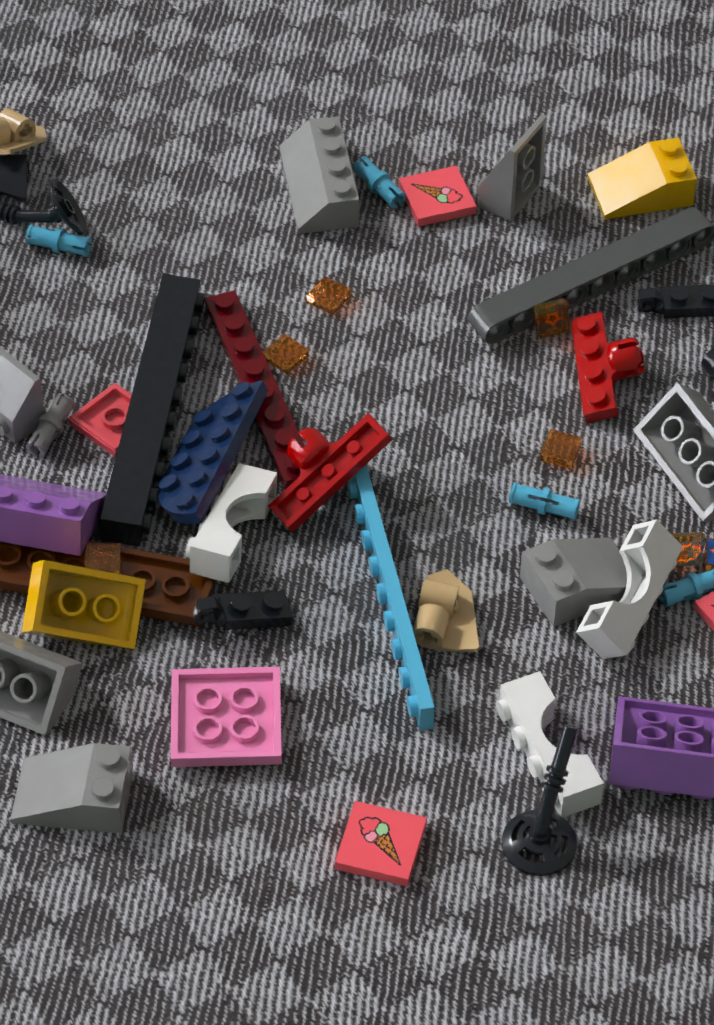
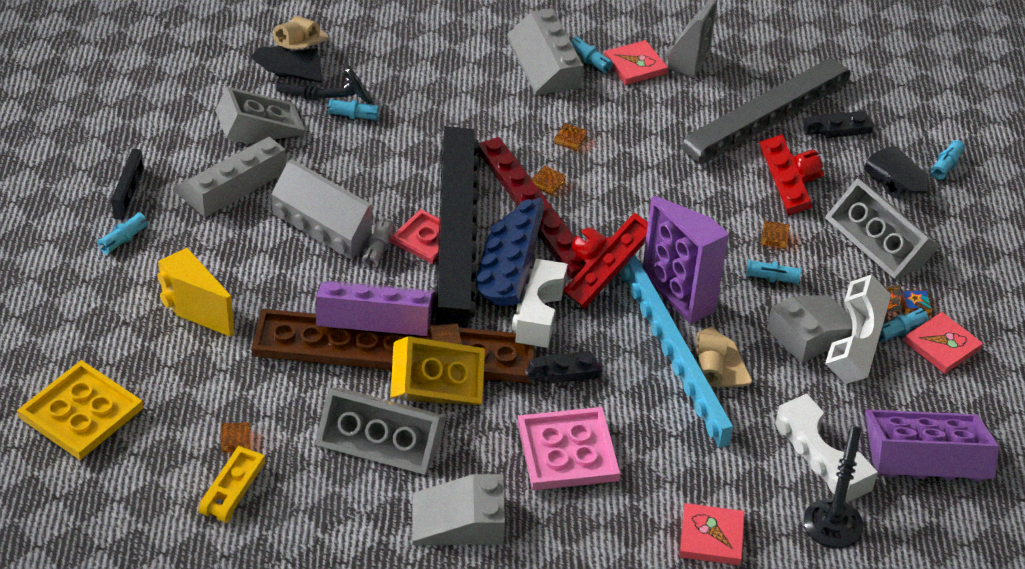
camera: 10 degrees left, 5 degrees down
(420, 480) = (684, 258): none -> medium lavender slope
(551, 318) = (745, 141): clear orange tile -> none
(645, 180) = (789, 42): yellow slope -> none

